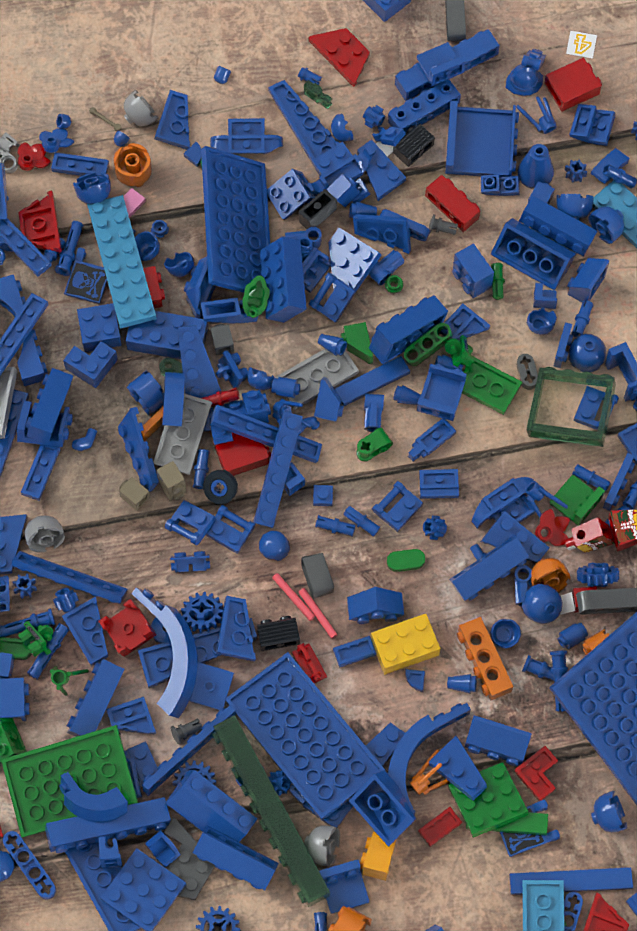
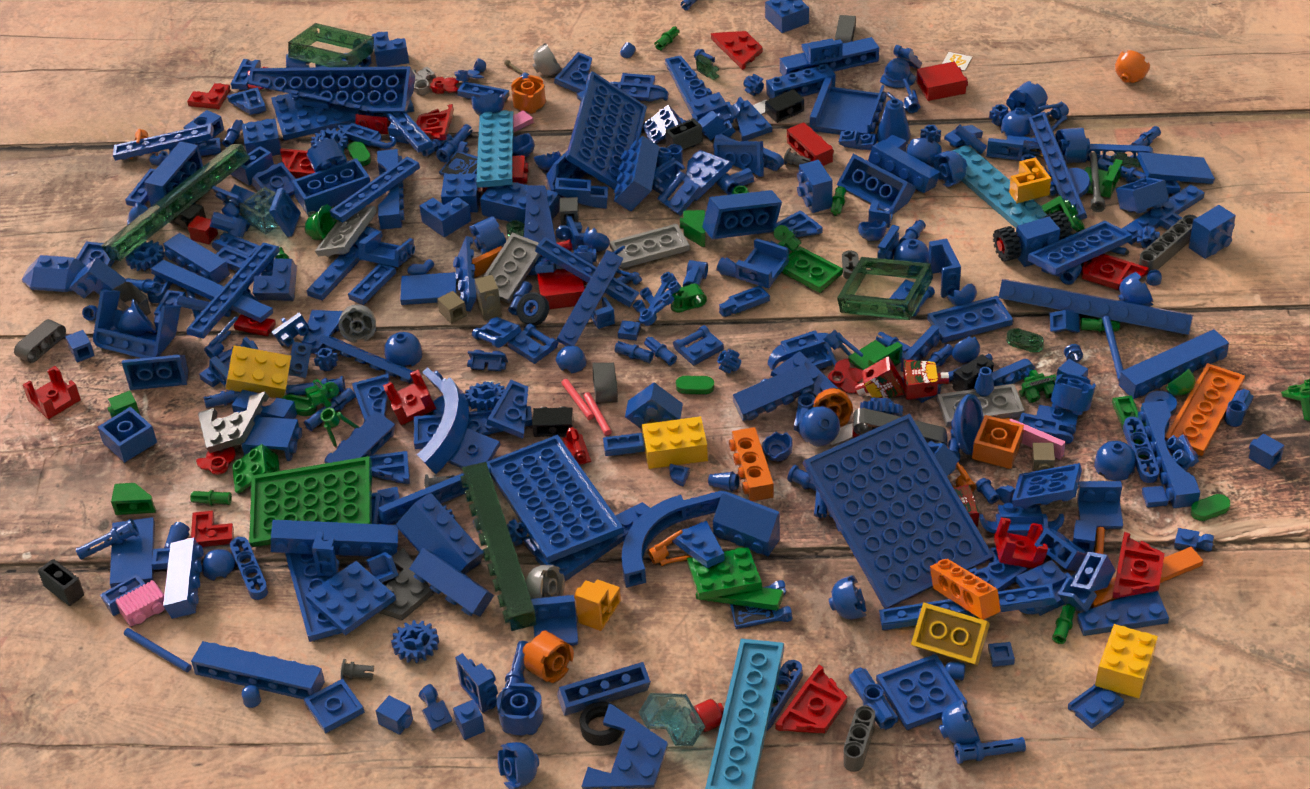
camera: 15 degrees right, 25 degrees down
(49, 405) = (395, 233): blue brick -> none
(65, 599) = (359, 371): blue gear -> none
(90, 806) = (323, 512): blue arch -> none
(100, 467) = (426, 287): none -> blue tile
(100, 560) = (403, 349): none -> blue cylinder
(159, 224) = (539, 138): blue plate -> none
(173, 399) = (506, 235): blue arch -> none
(255, 297) = (607, 179): green arm -> none
(261, 49) = (667, 38): none -> green axle
(285, 387) = (613, 242): blue brick -> none
(328, 402) = (652, 261): blue slope -> none
(333, 344) = (670, 221): blue cone -> none
(338, 129) = (719, 86): blue hair -> none
(344, 455) = (648, 316): none -> blue plant
(372, 380) = (706, 254): blue tile -> none
(383, 807) = (610, 552): blue slope -> none
(391, 136) = (764, 95): blue plate -> none
(418, 345) = (760, 229): green beam -> none
(439, 484) = (742, 332): blue plate -> none
(440, 826) = (668, 590): red plate -> none
(533, 770) = (778, 560): red plate -> none
(578, 879) = (812, 656): blue tile -> none
(588, 279) = (925, 204): blue slope -> none
(592, 124) = (953, 110): blue slope -> none

